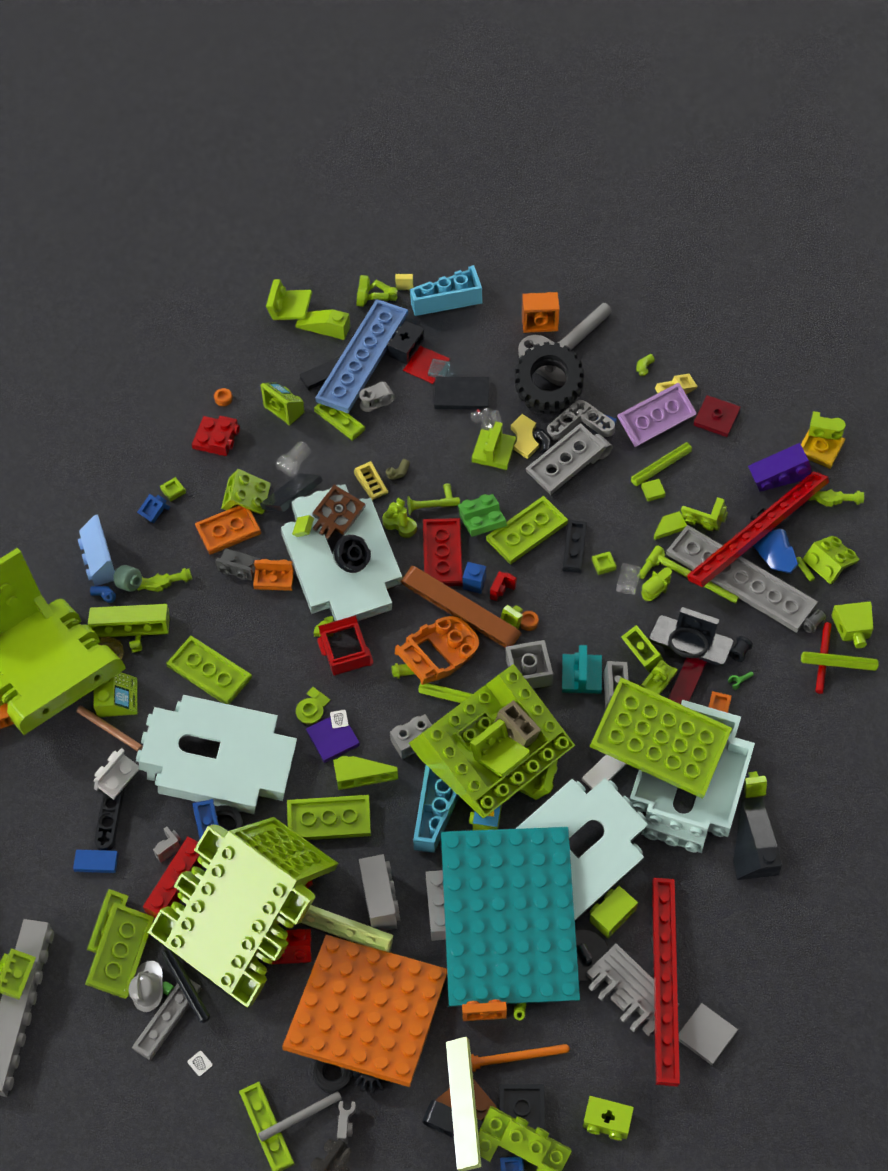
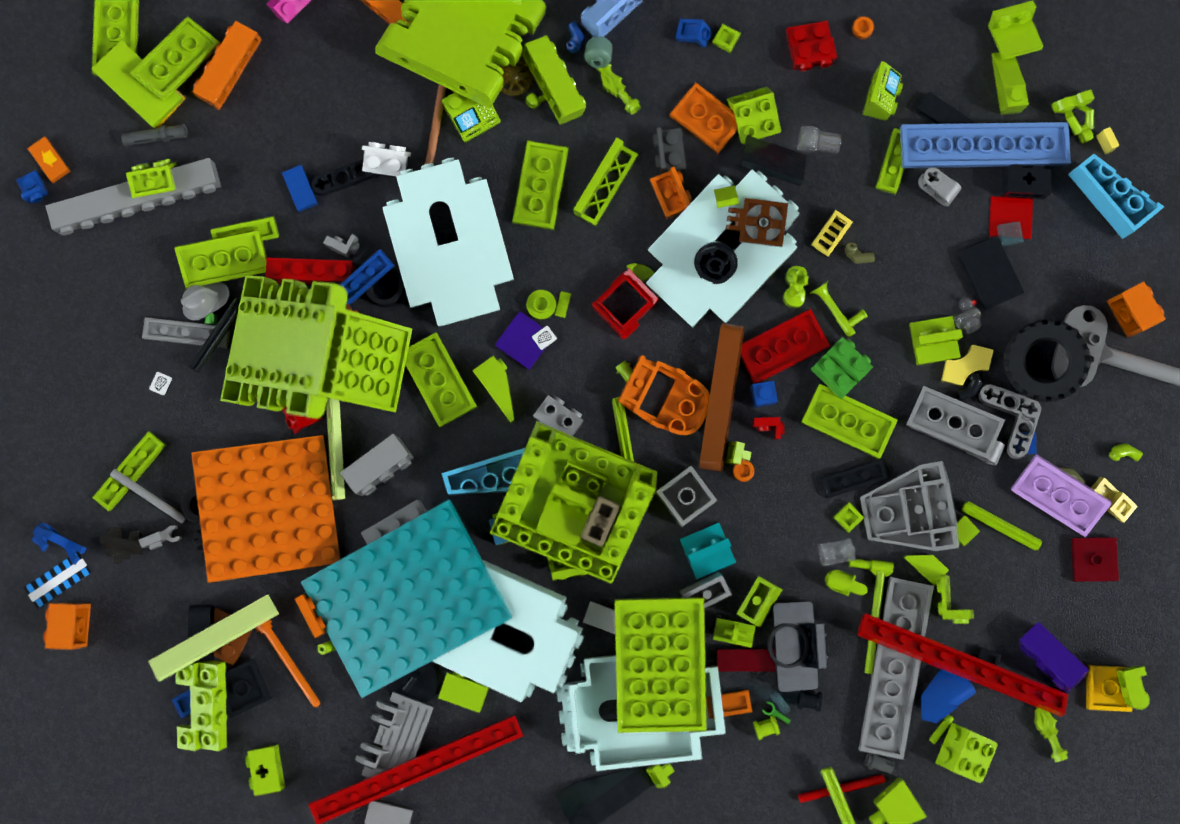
camera: 65 degrees right, 25 degrees up
(232, 624) = (599, 176): none -> lime fence
(620, 514) = (913, 510): none -> light grey wedge
(732, 669) = (779, 702): none -> clear light blue tile
(749, 689) = (766, 727): none -> lime bush

